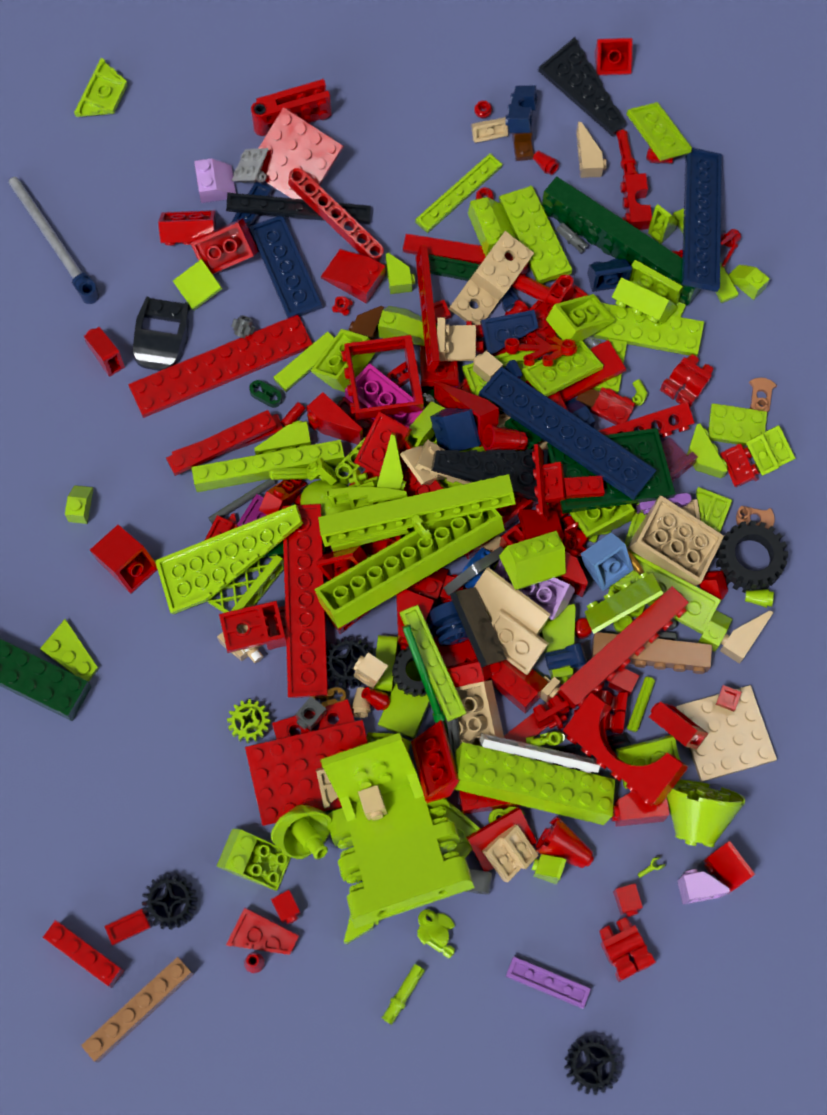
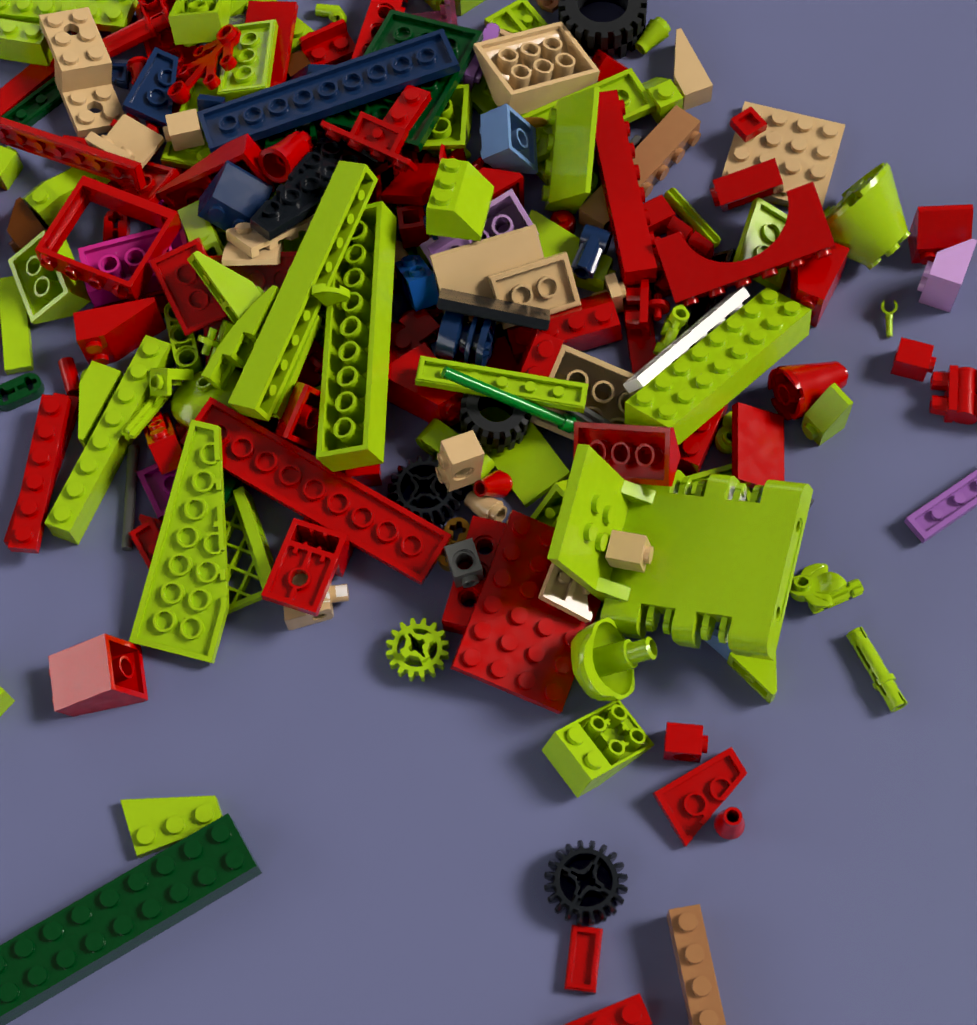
camera: 50 degrees left, 5 degrees down
(473, 570) = (423, 267): dark grey beam -> none
(510, 853) = (780, 448): tan slope -> none

